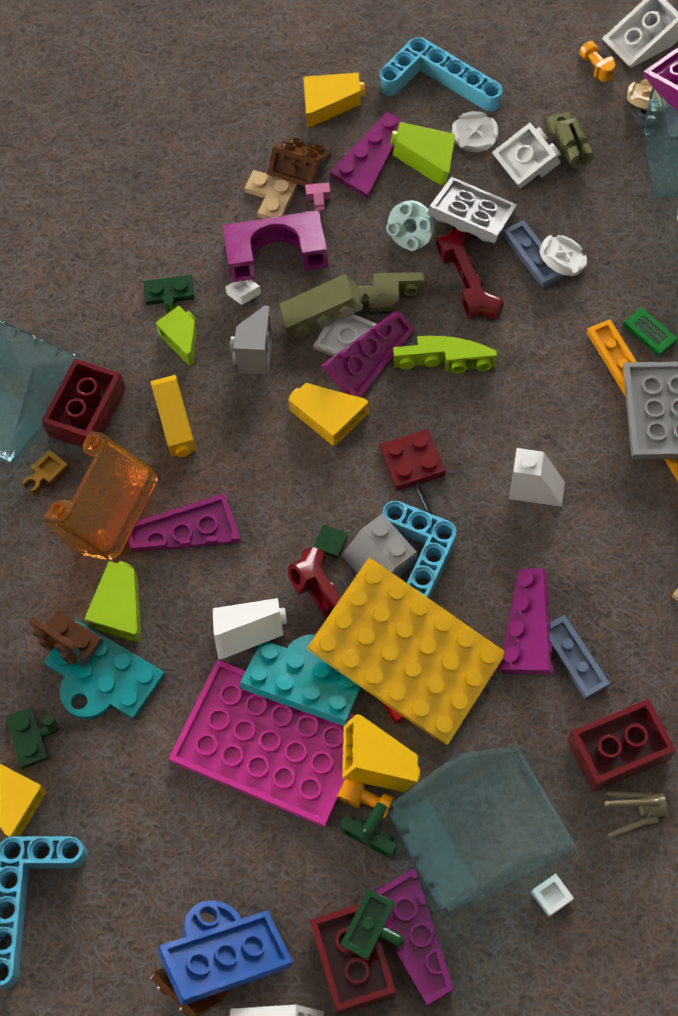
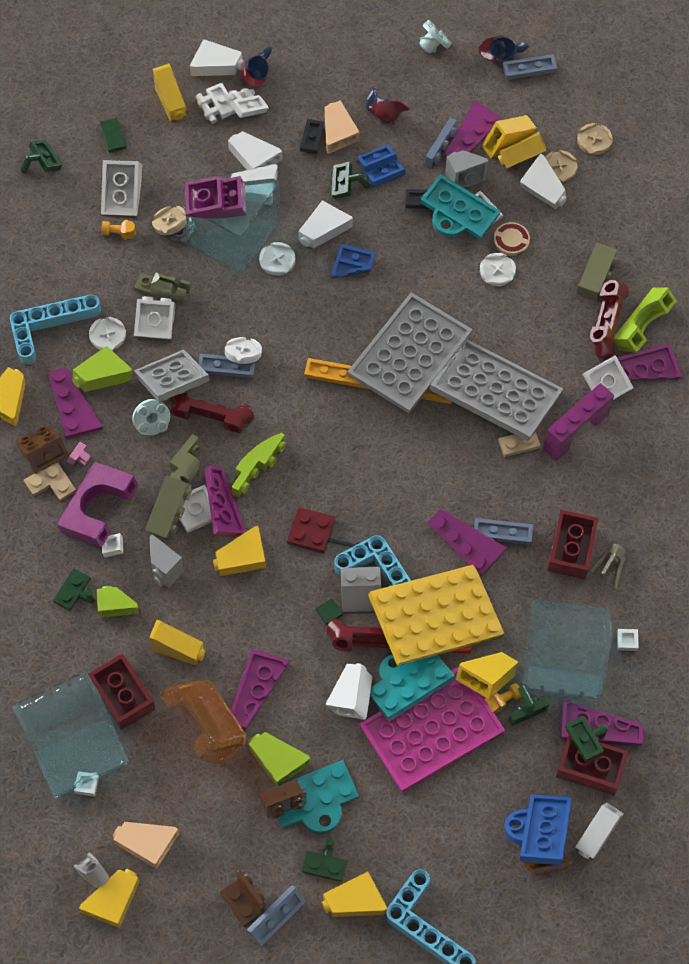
camera: 60 degrees left, 0 degrees up
(46, 469) = (148, 744): pearl gold plate -> none
(536, 479) = (381, 473): white slope -> none
(650, 332) = (331, 343): green tile -> none

